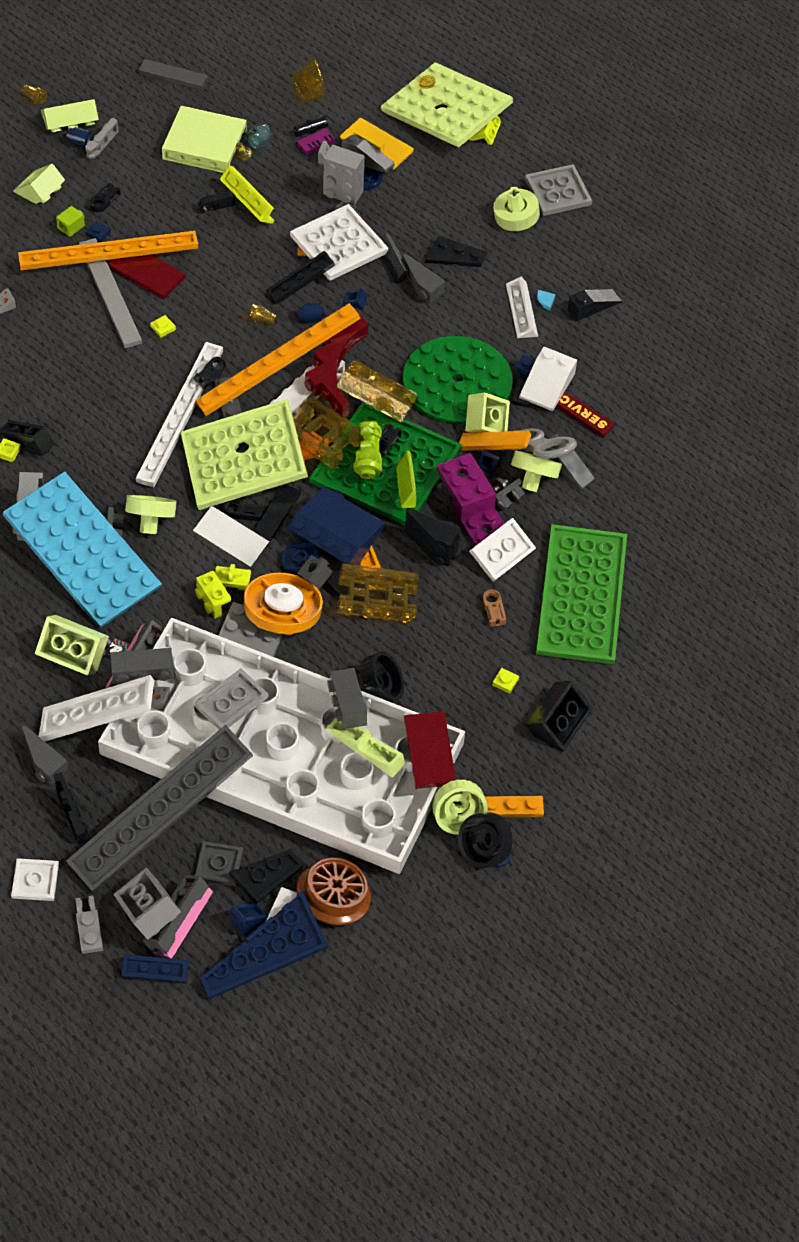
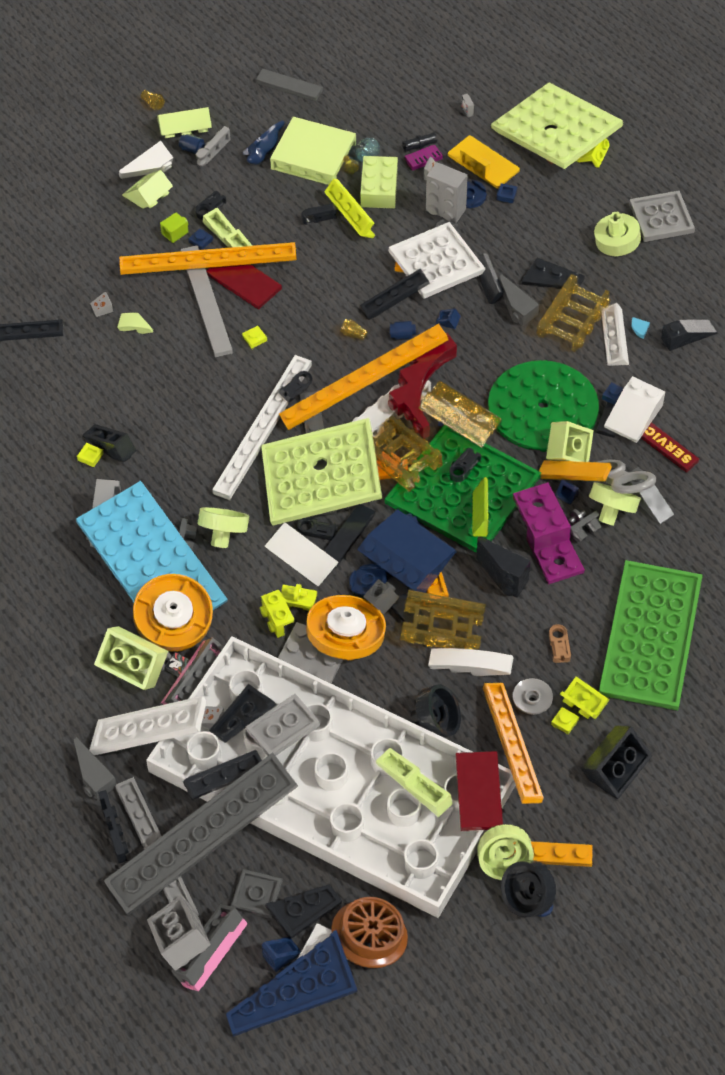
camera: 10 degrees right, 0 degrees up
(35, 879) = (72, 897): white tile -> none
(38, 316) = (133, 321): none -> yellowish green slope
(41, 155) = (150, 161): none -> white slope
(88, 927) = (120, 951): light grey hinge -> none
(102, 809) = (147, 830): none -> light grey tile
(109, 598) = (172, 612): none -> light orange piece
(121, 221) = (224, 230): none -> yellowish green slope
(141, 663) = (192, 683): dark grey brick -> none
(153, 135) = (263, 144): none -> dark blue animal
(155, 968) = (181, 1000): dark blue plate -> none
(174, 750) = (220, 775): none -> black plate
(190, 688) = (243, 711): none -> black wing
(274, 167) = (379, 182): none -> yellowish green brick
(309, 82) = (421, 98): clear yellow slope -> none
(347, 698) = (399, 732): dark grey brick -> none
(355, 88) = (467, 105): none -> light grey tile
(368, 457) = (445, 481): lime animal -> none
(373, 159) = (476, 174): dark grey slope -> none
(403, 173) = (506, 193): none -> dark blue plate
(413, 629) = (469, 660): none -> white slope
(427, 81) = (538, 101): clear yellow piece -> none
(457, 703) = (512, 743): none -> light orange tile
(469, 276) = (563, 300): none -> clear yellow fence
(472, 652) = (532, 688): none -> light grey dish
(502, 549) = (573, 584): white plate -> none
(523, 657) = (585, 698): none -> neon yellow bracket

